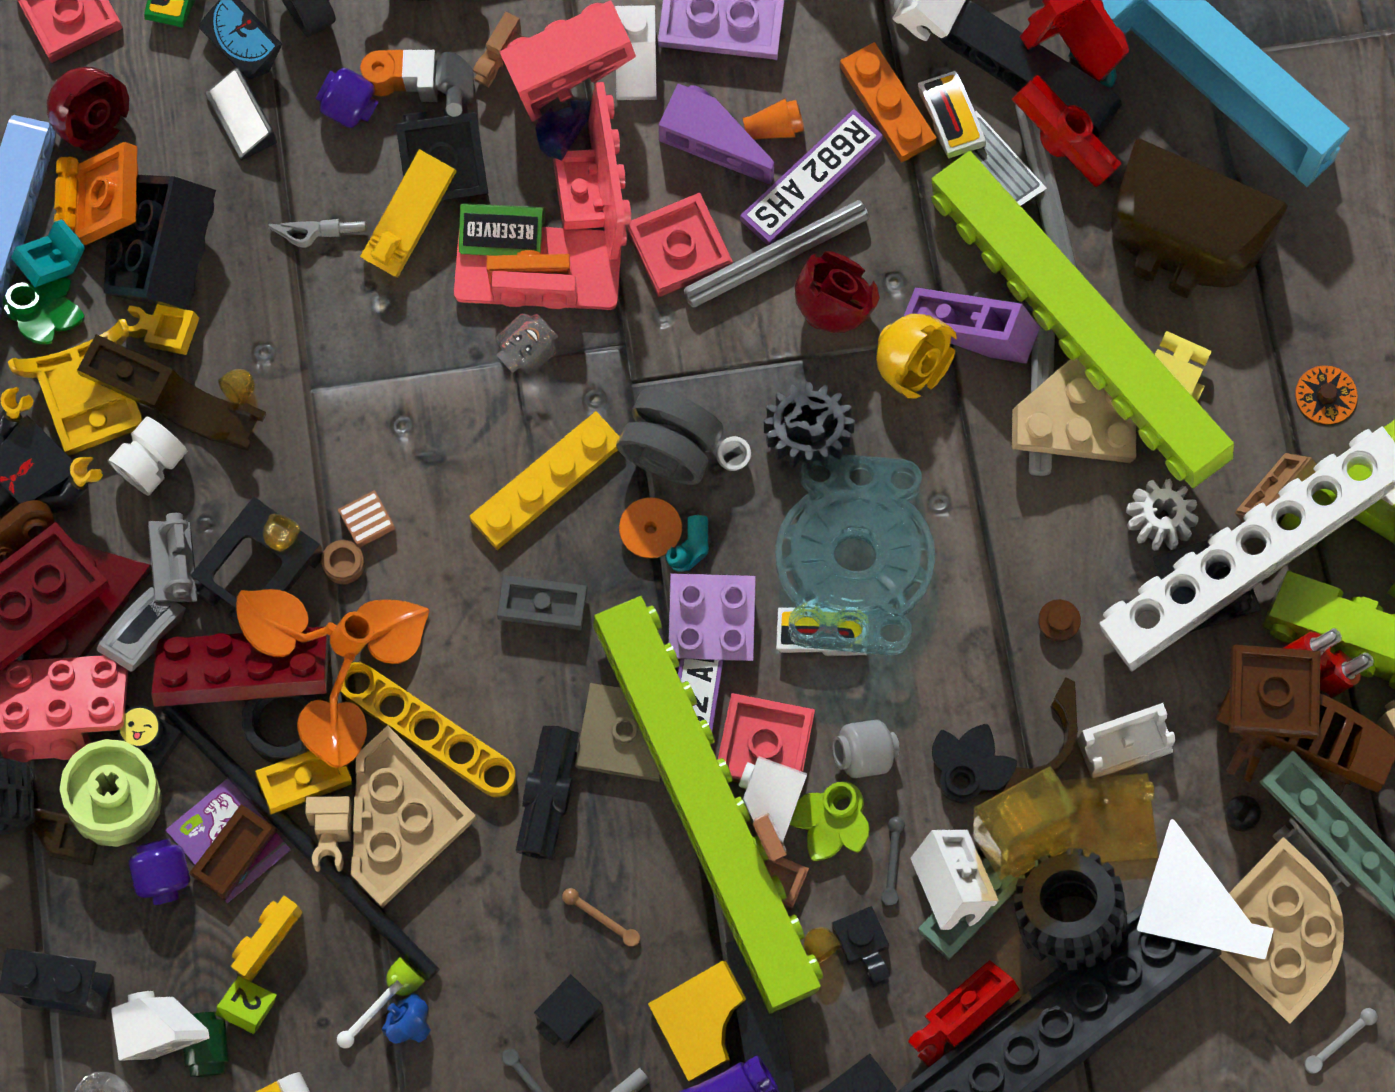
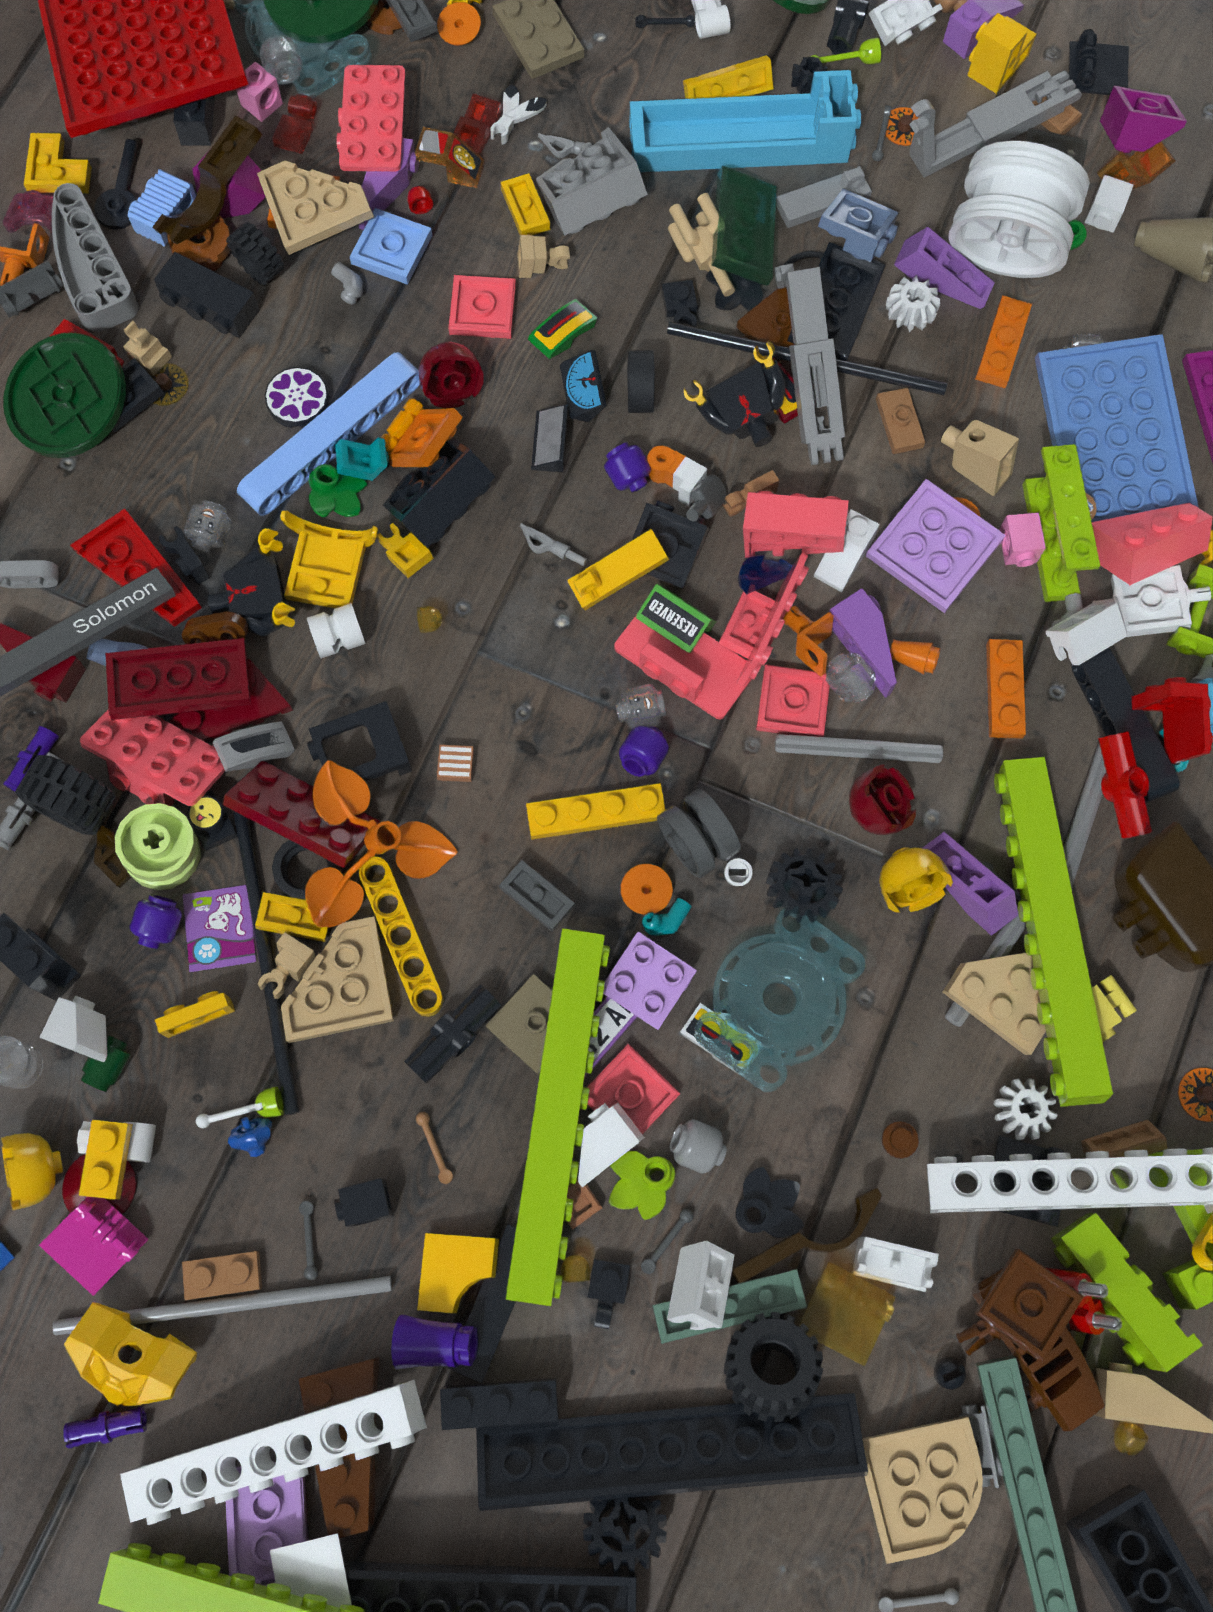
camera: 30 degrees right, 0 degrees up
(169, 393) = (377, 596): dark brown piece -> none
(172, 559) = (306, 711): light grey hinge -> none
(233, 852) = (215, 939): reddish brown tile -> none
(245, 1005) = (151, 1053): lime tile -> none
(280, 532) = (385, 735): clear yellow hinge -> none
(343, 562) = (420, 783): medium nougat tile -> none
(529, 262) = (679, 652): orange plate -> none
(557, 387) = (643, 751): none -> dark purple head
(654, 164) = (809, 636): none -> orange bracket
(724, 184) = (851, 677): none -> clear head
(769, 837) = (583, 1171): nougat tile -> none
(811, 177) = (917, 709): tile -> none
(952, 114) = (1047, 724): slope -> none
(963, 1011) = (647, 1390): red plate -> none
(1007, 166) = (1061, 773): sticker -> none
(1026, 824) = (776, 1285): clear yellow brick -> none
(1194, 906) = (867, 1425): white sticker -> none

